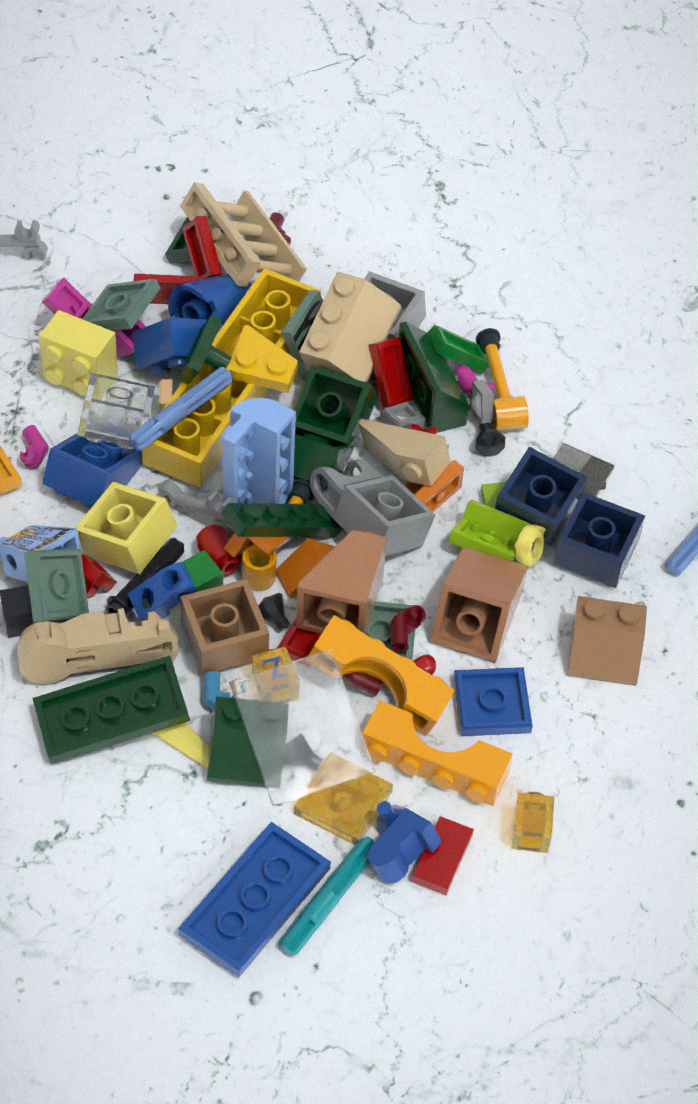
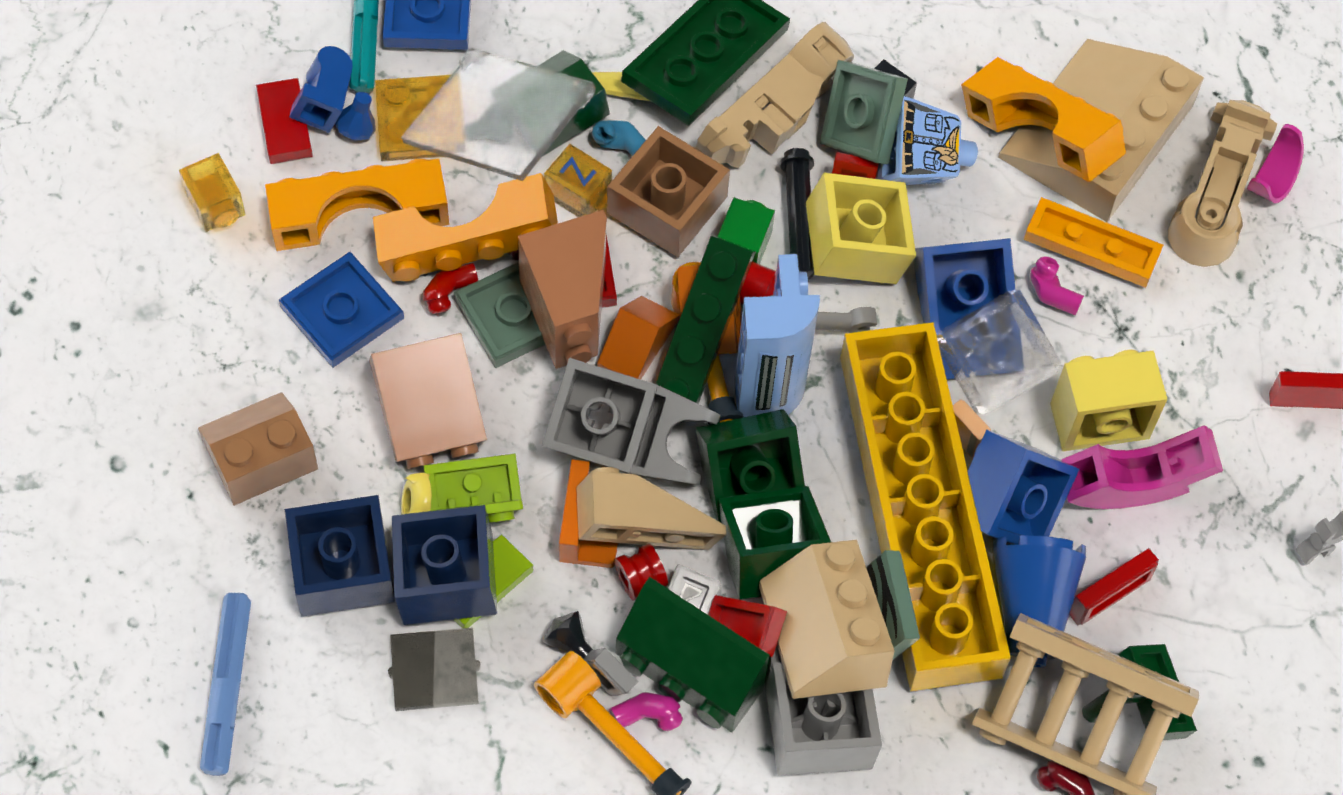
camera: 145 degrees right, 10 degrees up
(122, 304) = (1119, 479): sand green tile -> none
(162, 591) = (757, 177): blue leg -> none
(180, 408) = (920, 376): medium blue axle -> none
(201, 248) = (1112, 641): red tile -> none
(204, 352) = (957, 452): dark green tile -> none
(261, 362) = (890, 501): yellow wing -> none
(273, 610) = (641, 258): black rock -> none
(403, 625) = (489, 312): dark red arm -> none
(458, 349) = (692, 725): green tile -> none

